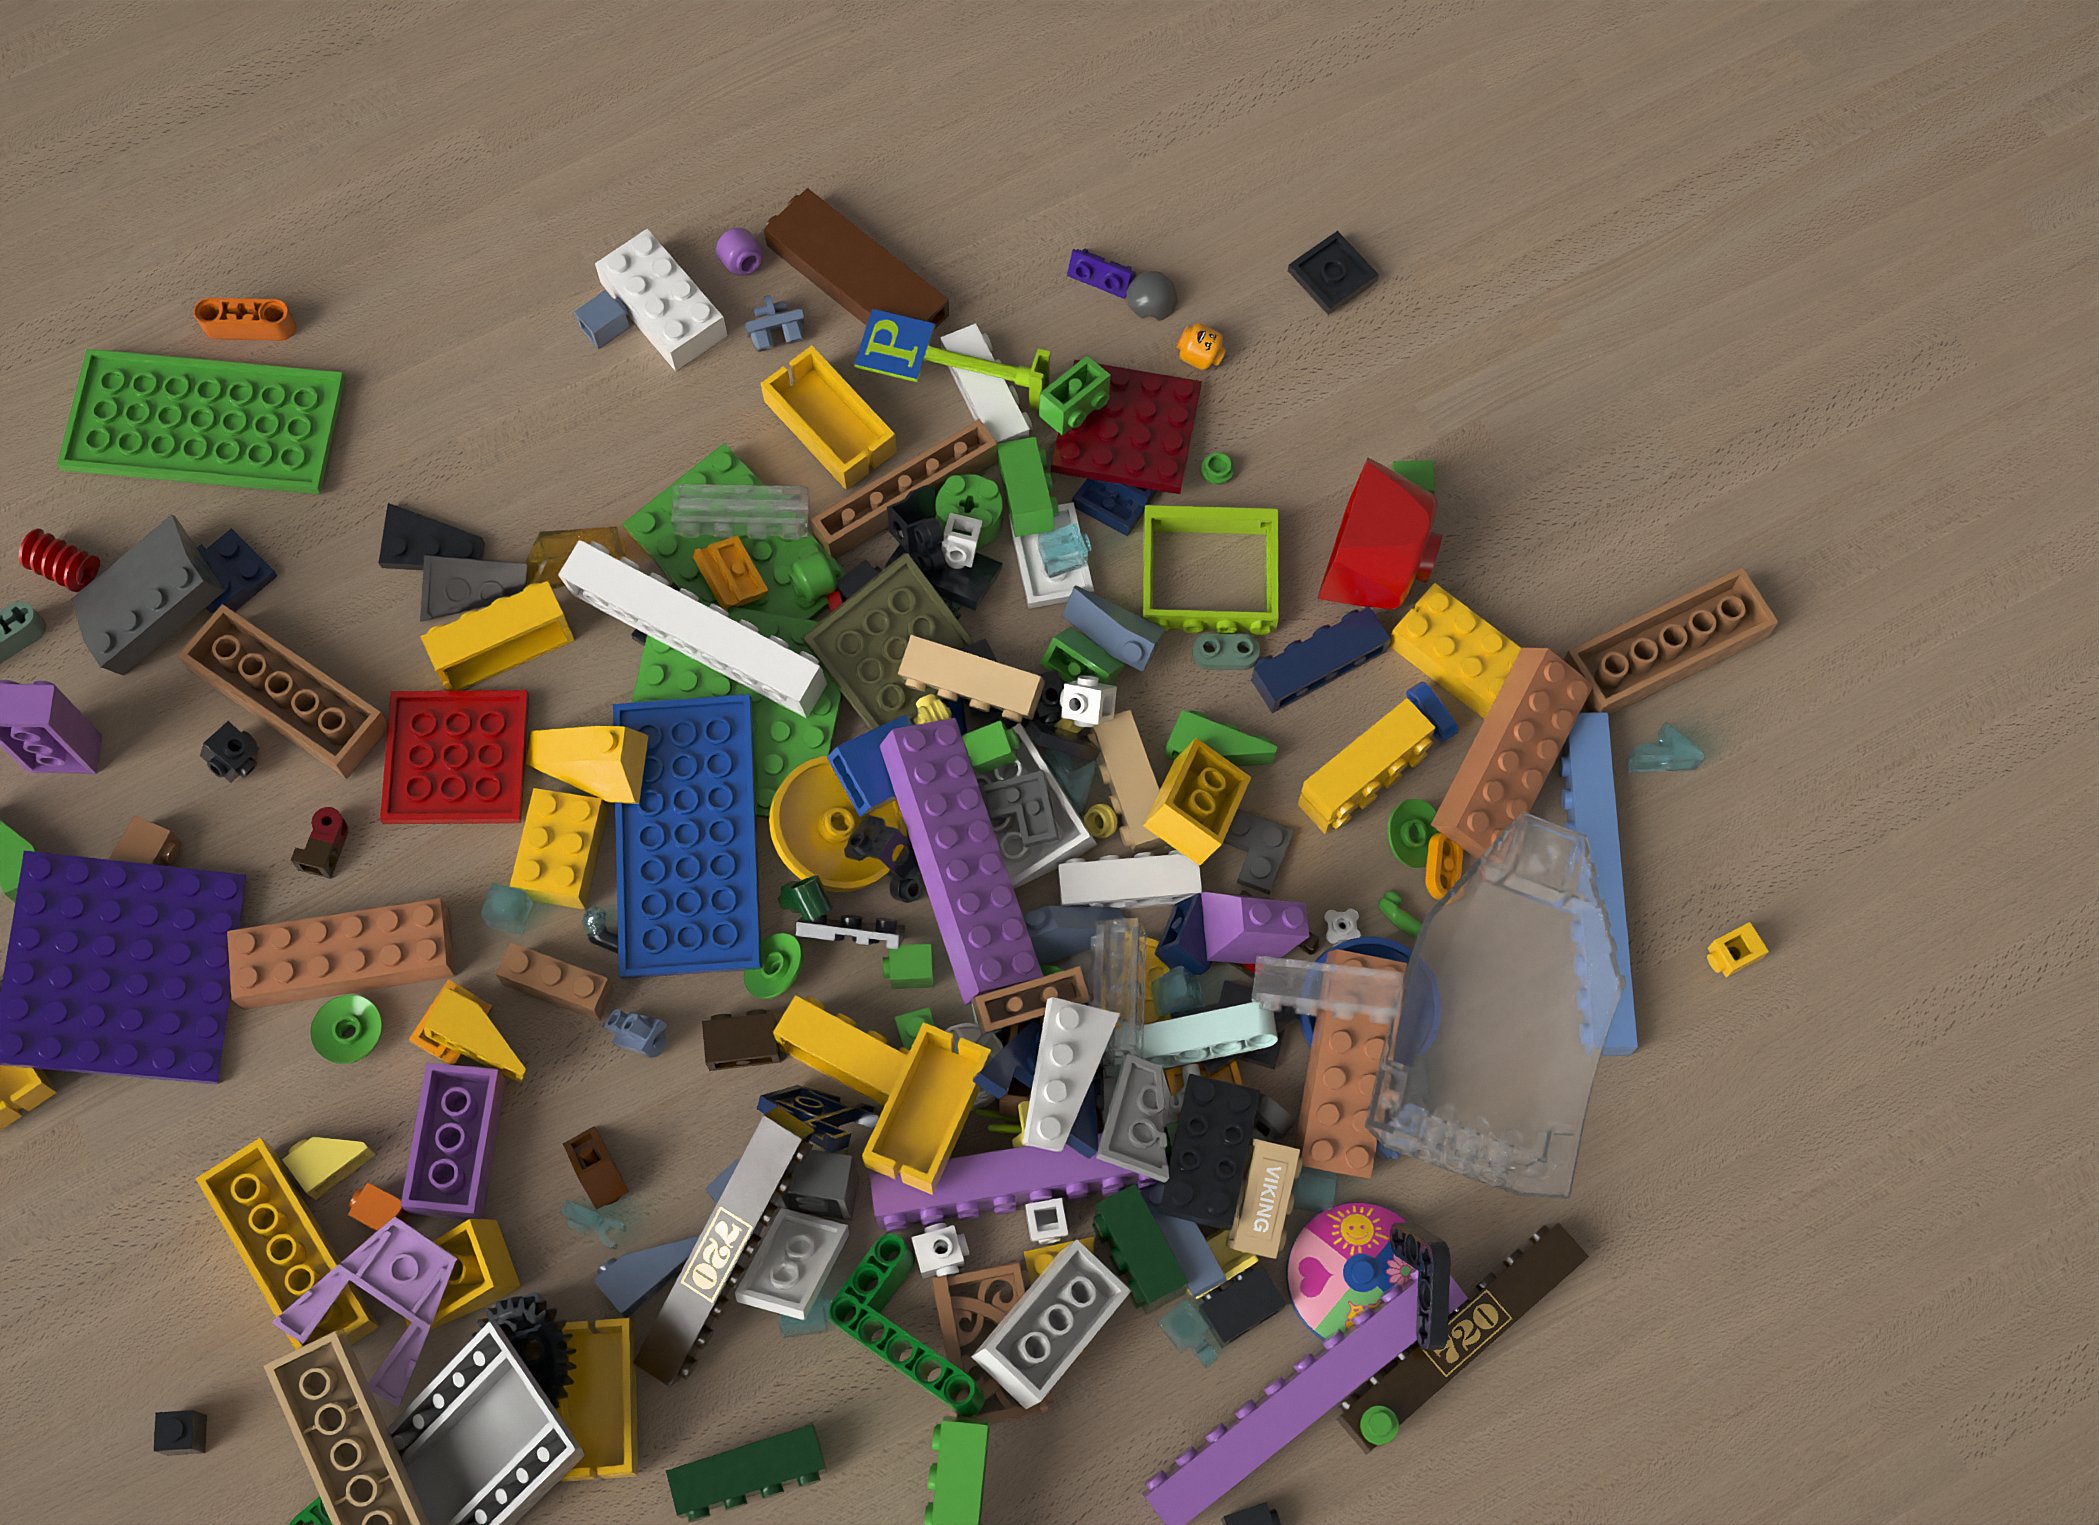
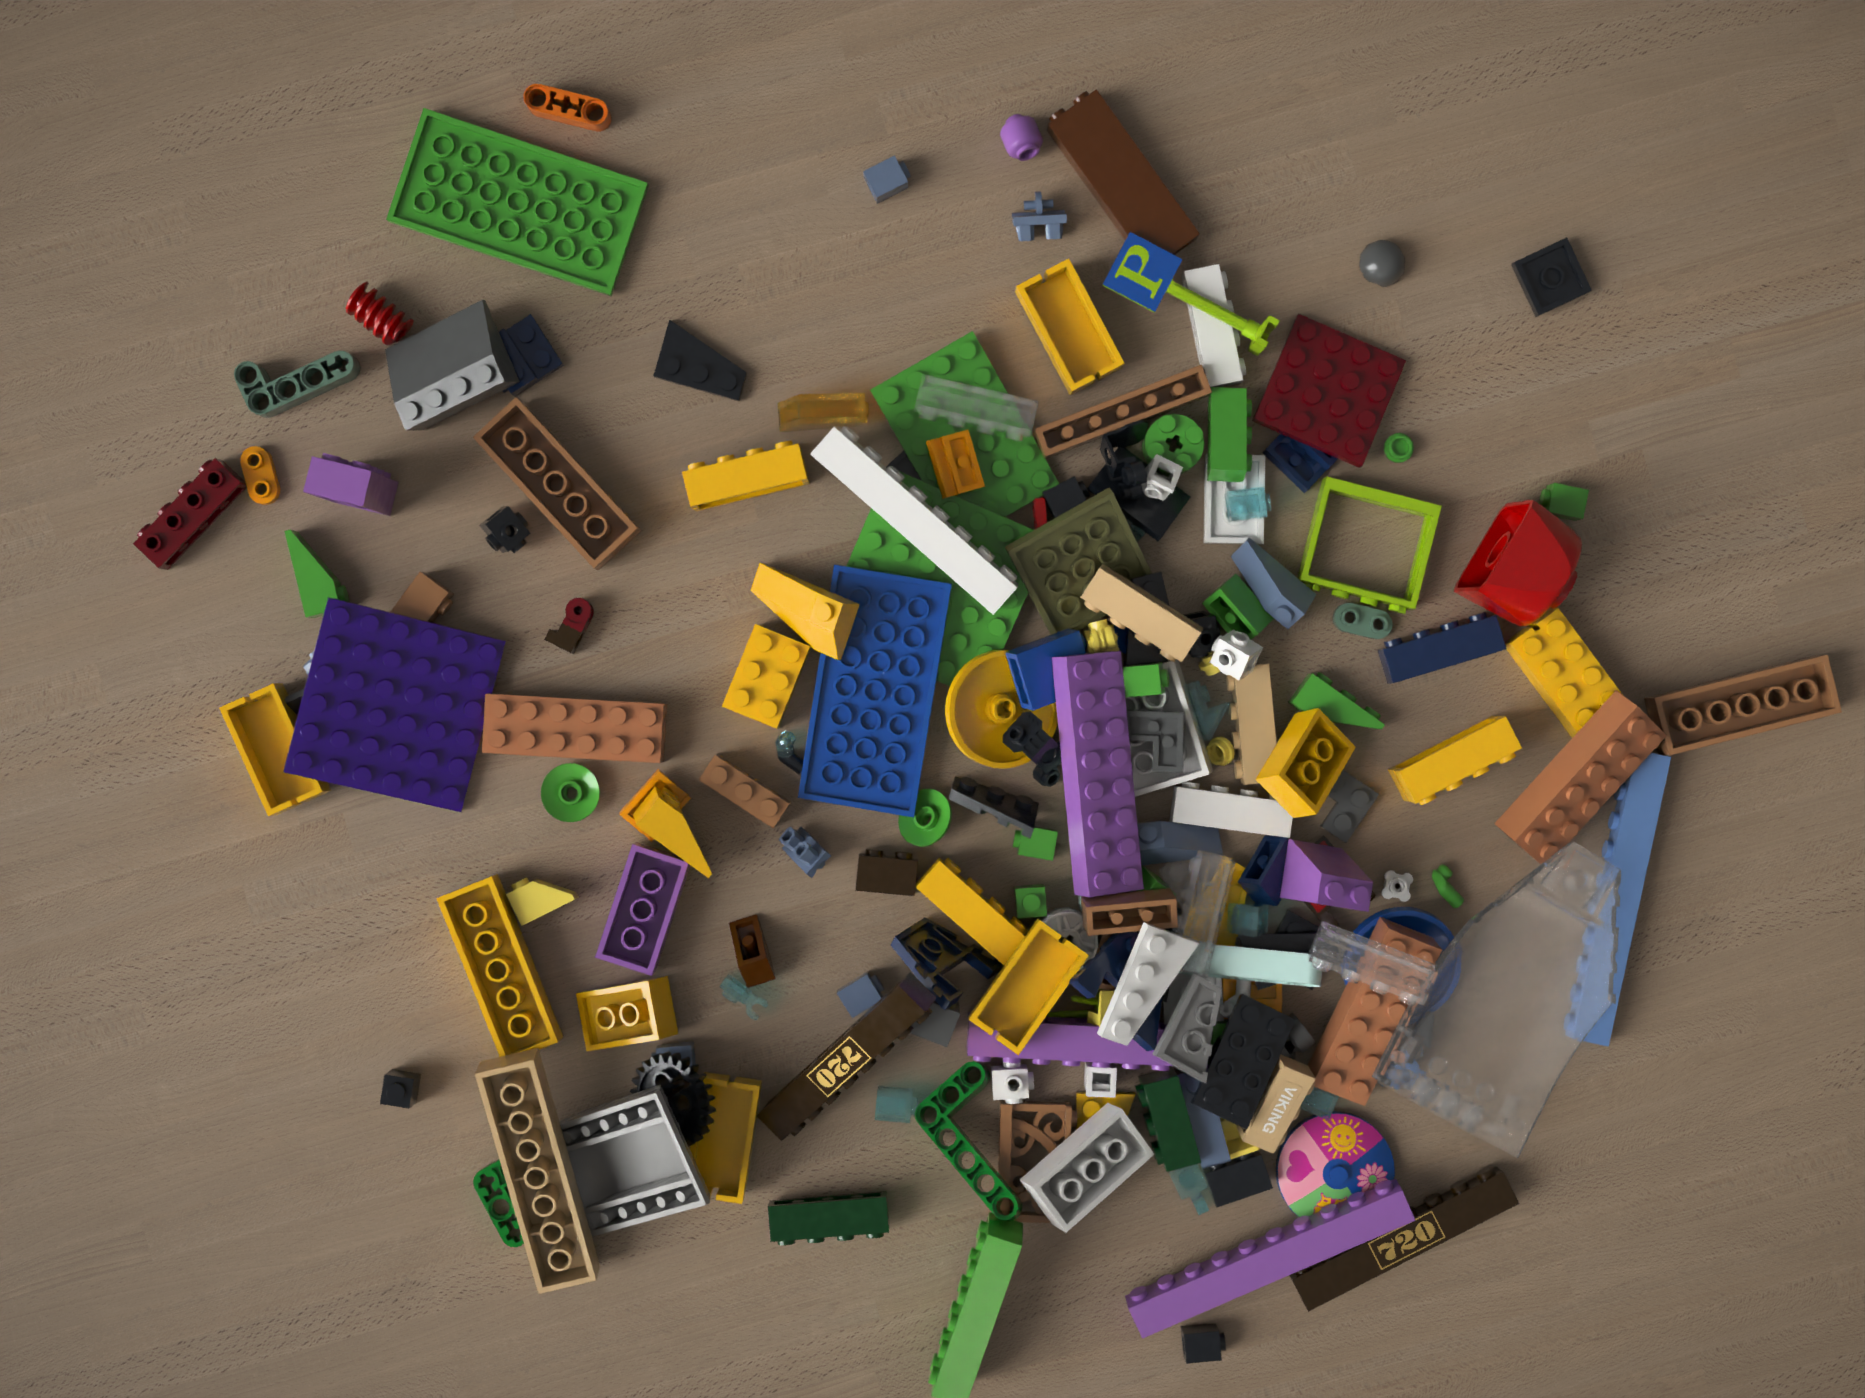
camera: 10 degrees right, 20 degrees up
(375, 1207) = (575, 948): orange brick -> none
(400, 1271) = (584, 1008): lavender wing -> none
(455, 757) = (692, 572): red plate -> none
(467, 583) = (723, 413): black wing -> none
(506, 909) = (715, 719): clear light blue brick -> none
(642, 1274) = (774, 1045): sand blue slope -> none
(661, 299) = (942, 171): white brick -> none
(792, 1264) = (896, 1075): white plate -> none
(805, 897) = (963, 770): dark green piece -> none
(814, 576) = (1027, 483): bright green head -> none
(1062, 740) = (1205, 681): black tile -> none
(1074, 395) = (1290, 363): bright green brick -> none
(1100, 274) = (1352, 237): dark purple hinge -> none
(1200, 346) = (1413, 326): light orange head -> none
(1379, 1425) = (1320, 1297): bright green plate -> none
(1411, 831) = (1476, 822): bright green dish -> none
(1432, 708) = (1523, 717): blue beam -> none
(1432, 1260) = (1395, 1201): black beam -> none
(1443, 865) = (1494, 856): light orange plate -> none
(1673, 753) = (1715, 797): clear light blue slope -> none
(1744, 943) = (1723, 982): yellow brick -> none

